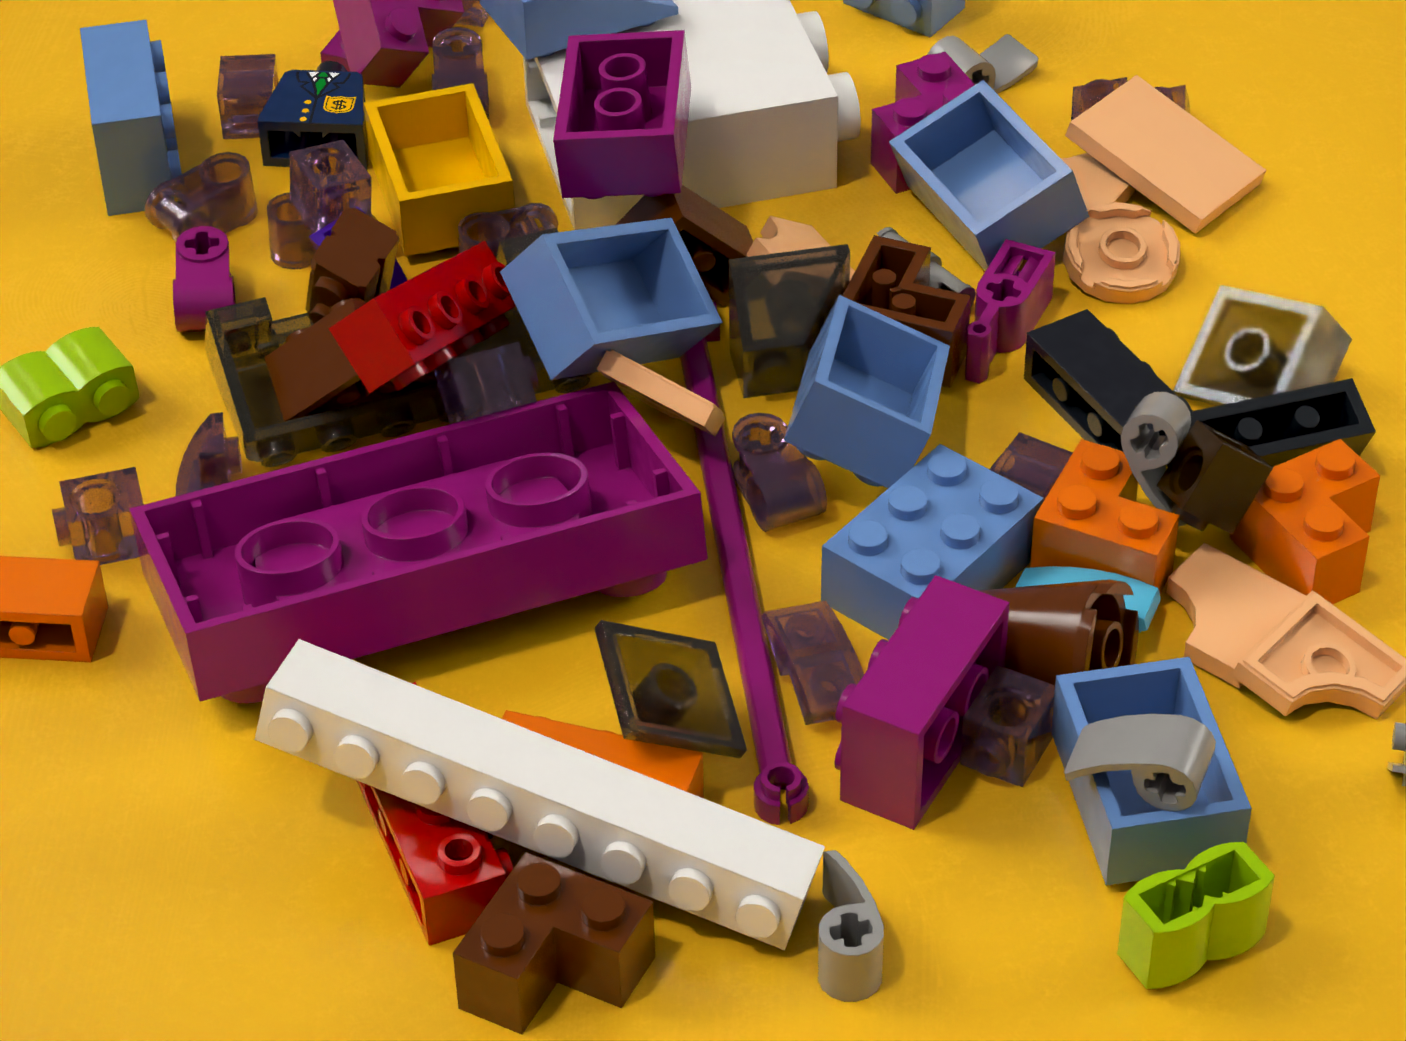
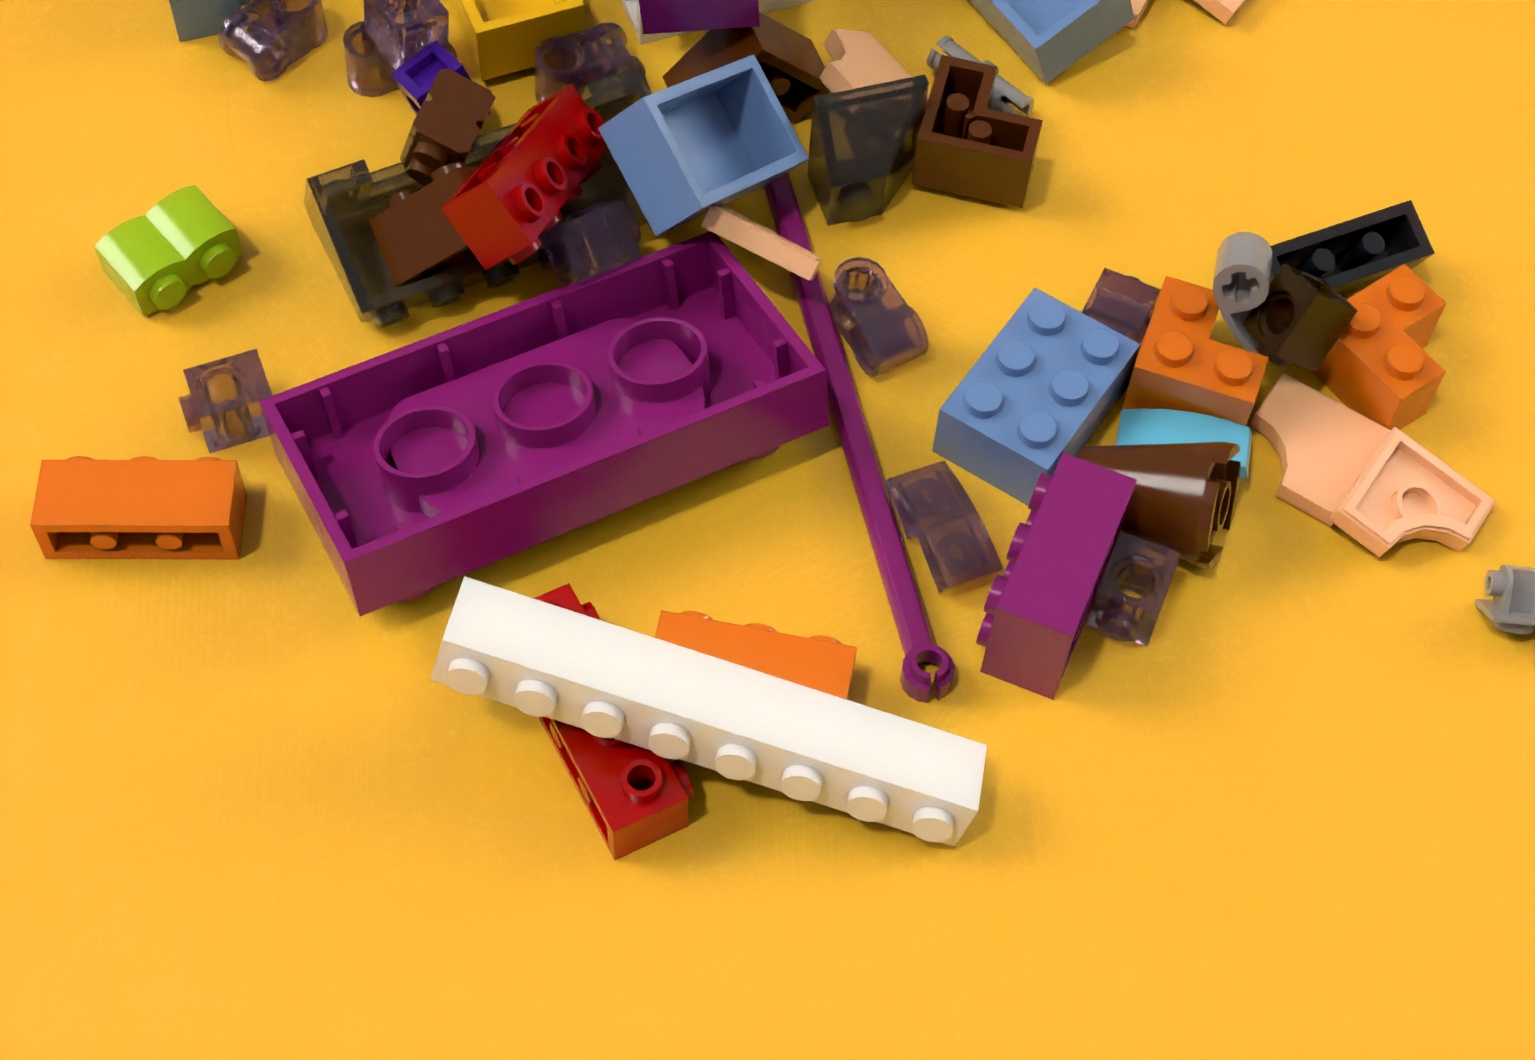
camera: 10 degrees left, 15 degrees up
(201, 277) = (290, 123): magenta piece -> none
(209, 457) = (326, 335): slope -> none
(552, 930) = (736, 847): reddish brown brick -> none
(669, 689) = (820, 586): clear smoke slope -> none
(849, 934) = (1023, 828): panel -> none
(868, 394) = (960, 235): medium blue piece -> none
(1008, 304) = (1067, 116): magenta piece -> none
(1089, 376) = (1165, 205): black brick -> none
(1121, 253) = (1164, 53): light nougat tile -> none
(1123, 829) = (1274, 637): medium blue piece -> none
(1161, 750) = (1300, 638): light grey panel -> none
(1195, 914) = (1337, 794): lime brick -> none
(1261, 348) = (1311, 165): clear smoke slope -> none

